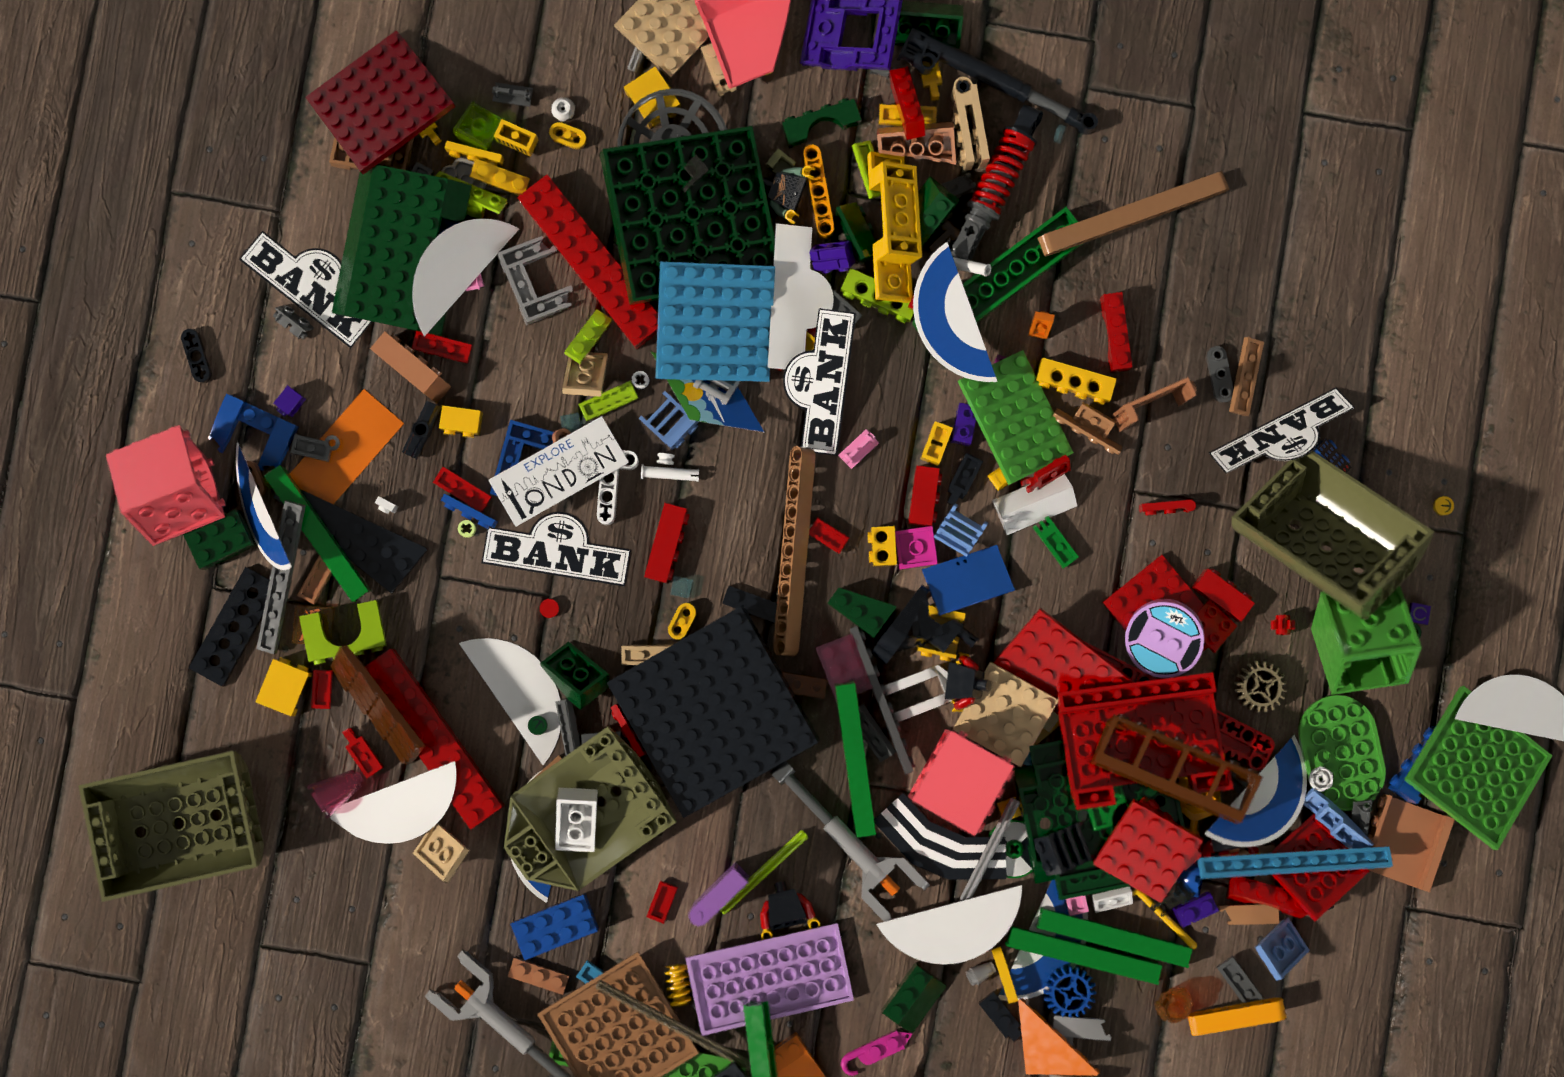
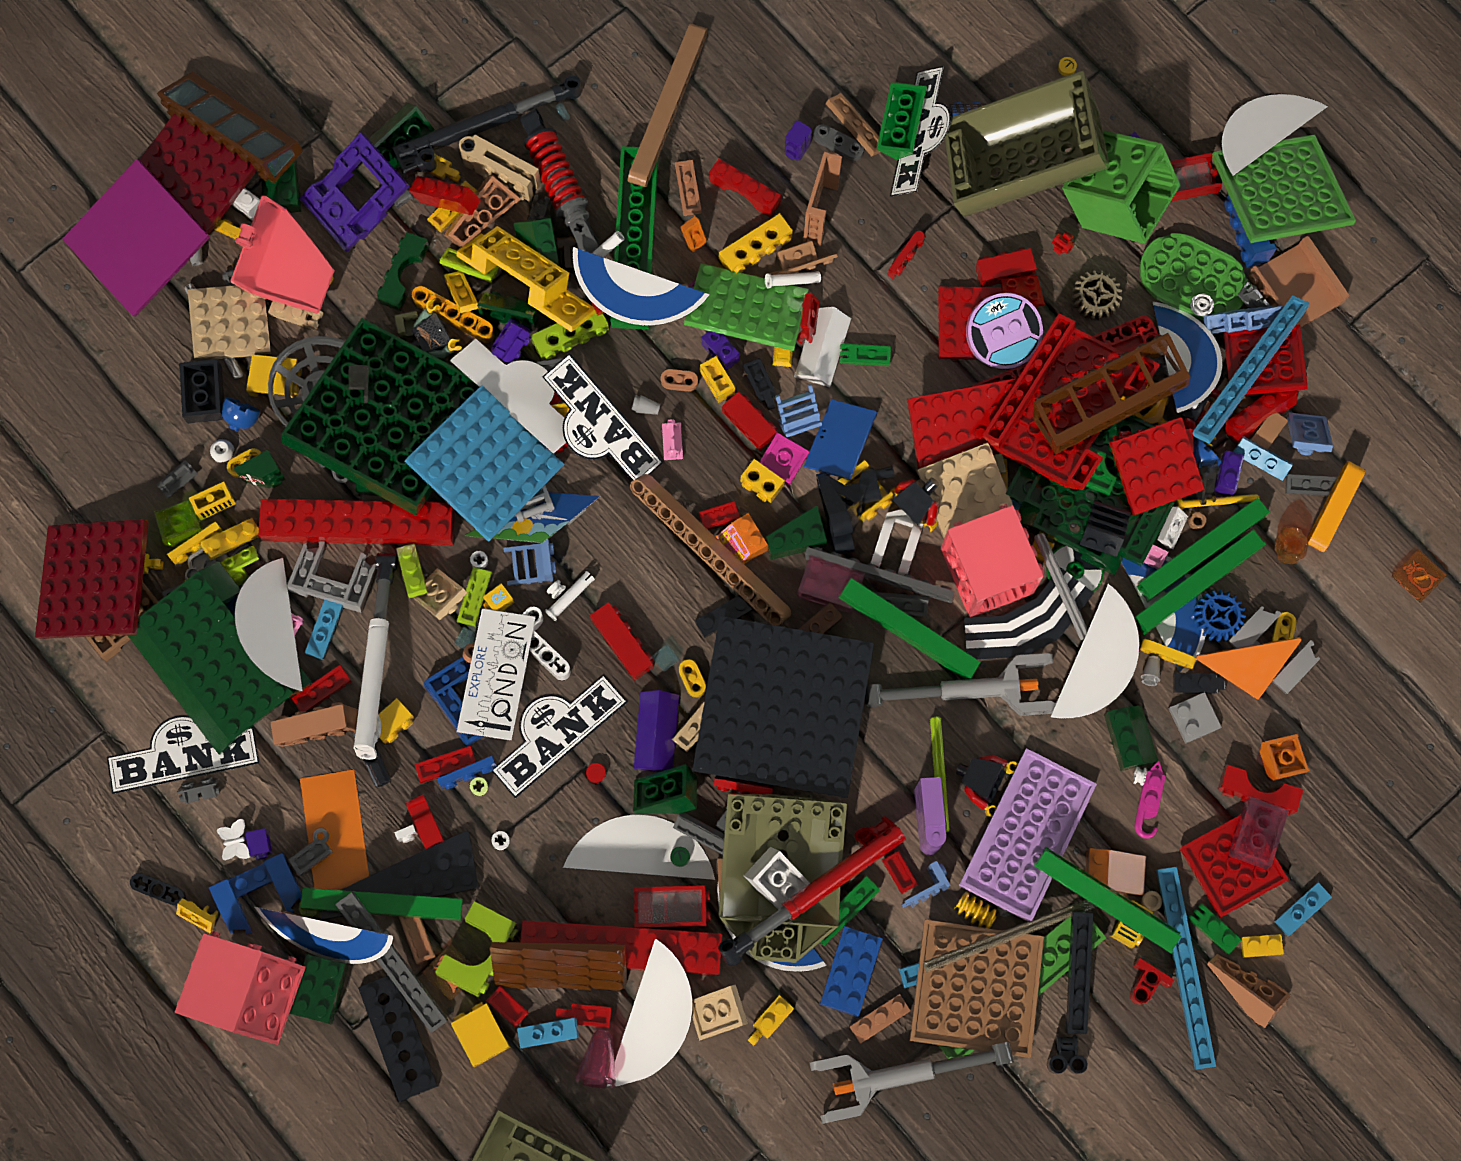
camera: 50 degrees left, 10 degrees down
(199, 395) = (192, 913): none -> yellow plate
(276, 380) = (233, 842): none -> white piece
(326, 736) = (548, 1033): none -> dark azure plate
(406, 511) = (424, 822): none -> red piece
(433, 579) = (496, 845): none -> white bush
(441, 406) = (368, 720): none -> white piece
(471, 894) = (771, 1019): none -> yellow plate
(489, 308) = (324, 629): none -> dark azure plate
(493, 751) = (671, 907): none -> clear door
(571, 155) = (261, 471): none -> dark green slope
(595, 53) = (201, 390): none -> black brick
(600, 97) = (239, 414): none -> blue cylinder
(609, 886) = (853, 904): none -> green plate
(618, 627) = (655, 731): none -> dark purple slope
(620, 421) = (498, 599): none -> yellow brick
(666, 867) = (873, 845): none -> red piece
(682, 935) = (938, 876): none -> medium blue plate
(823, 570) = (743, 539): none -> orange slope
(840, 183) = (461, 291): none -> yellow plate
(869, 404) = (644, 405): none -> light grey cone
(887, 1027) = (1139, 776): none -> white bush
(913, 413) = (679, 378): none -> nougat plate
(970, 1035) = (1195, 718): none -> light grey plate
(1070, 434) = (792, 279): none -> white pin
(1079, 286) = (688, 187): none -> nougat plate
(1099, 1053) = (1282, 631): none -> yellow plate
(1139, 918) = (1191, 521): none -> medium nougat axle
(1190, 342) = (797, 140): none -> dark purple brick
(1230, 927) = (1263, 458): none -> plate
(1280, 410) = (901, 120): none -> green slope
(1430, 685) = (1195, 177): none -> door

